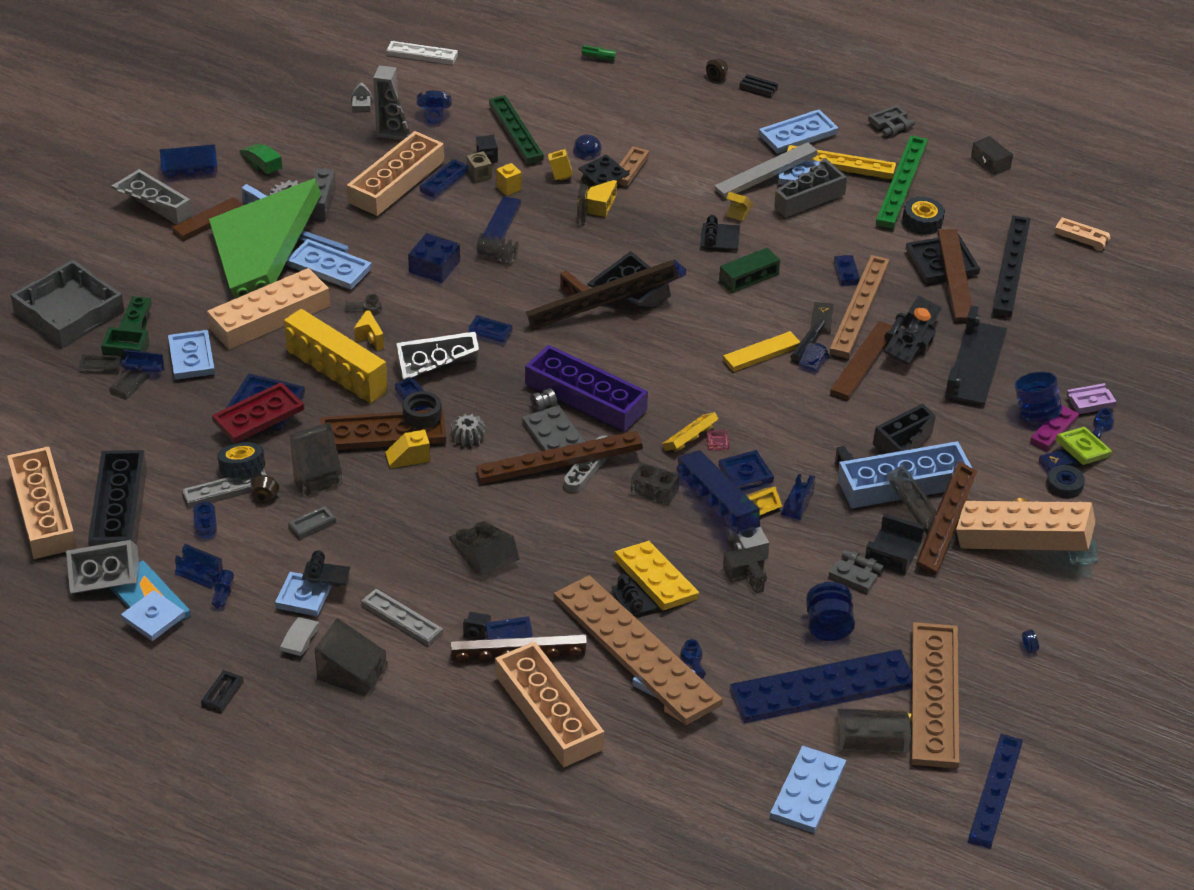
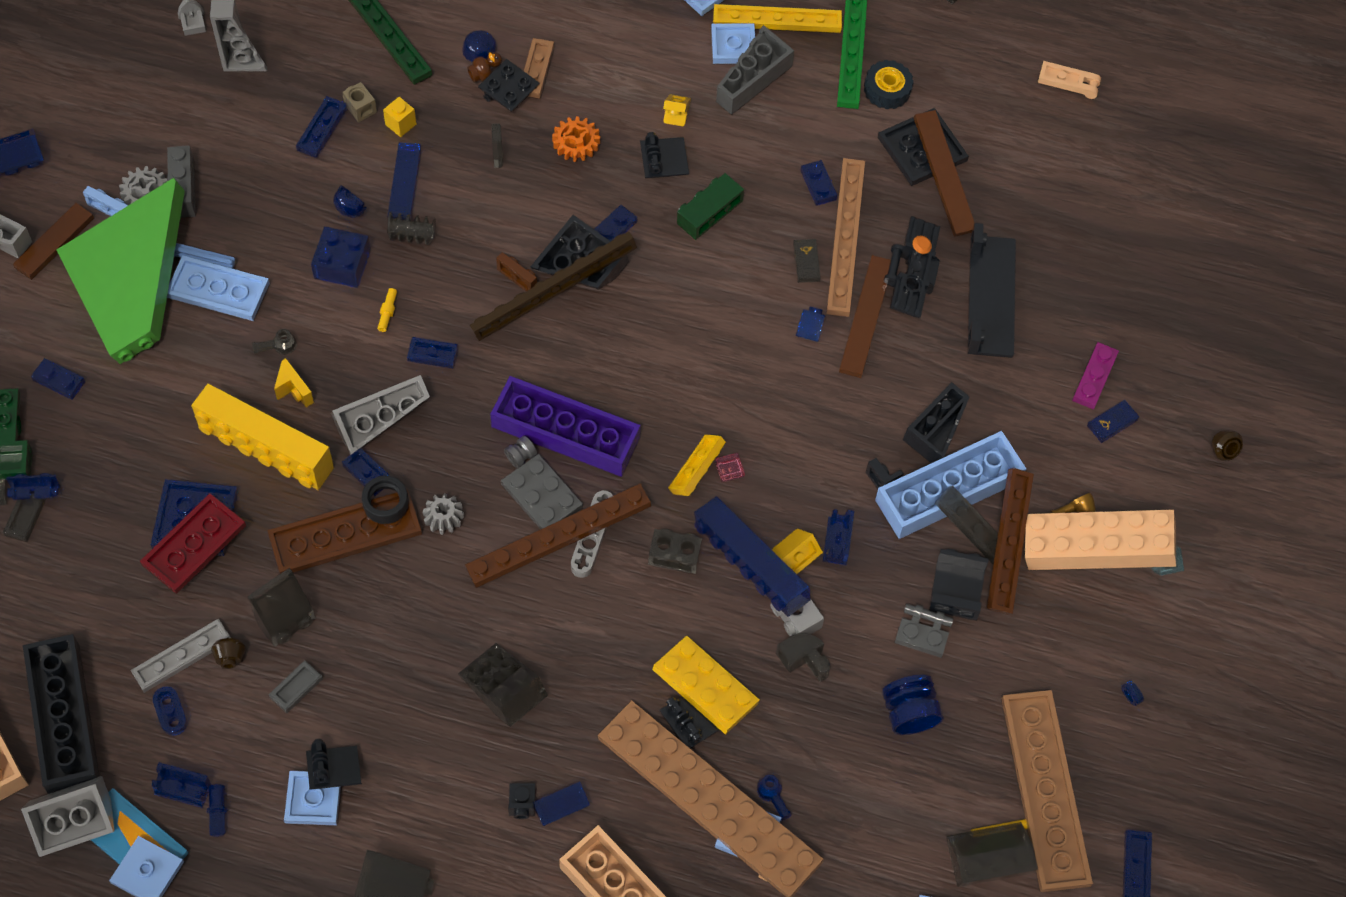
camera: 15 degrees left, 20 degrees up
(184, 302) = (58, 378): none -> clear blue plate
(191, 354) = (88, 461): light blue plate -> none
(241, 460) = (190, 616): black wheel -> none
(262, 158) = (94, 134): green slope -> none
(267, 308) = (163, 374): light nougat brick -> none
(299, 635) = (324, 861): light grey slope -> none
(395, 173) = (263, 133): light nougat brick -> none
(402, 617) = (433, 805): light grey tile -> none
(409, 450) = (382, 558): yellow slope -> none
(434, 101) = (283, 13): clear blue tile -> none
(450, 226) = (348, 203): none -> clear blue hair
(461, 298) = (387, 310): none -> yellow bar
(489, 146) = (361, 70): black brick -> none
(494, 648) = (567, 830): plate -> none
(560, 165) = (455, 84): yellow brick -> none
(585, 156) = (481, 68): none -> reddish brown animal
(601, 198) = (515, 126): yellow slope -> none
(649, 213) = (576, 138): none -> orange gear
(746, 470) = (772, 510): clear blue plate -> none
(761, 351) = (749, 325): yellow tile -> none
(766, 170) = (696, 49): light grey tile -> none
(810, 337) = (799, 303): black axle -> none
(822, 686) = (921, 802): clear blue plate -> none
(1011, 266) = (1002, 144): black plate -> none
(1038, 396) = (1074, 343): clear blue wheel -> none
(1072, 481) = (1127, 462): black bush -> none
(1083, 445) = (1133, 398): lime tile -> none
(1091, 398) = (1127, 326): lavender plate -> none
(1103, 422) = (1145, 360): clear blue bar -> none
(1160, 488) = (1227, 445): none -> dark brown cone

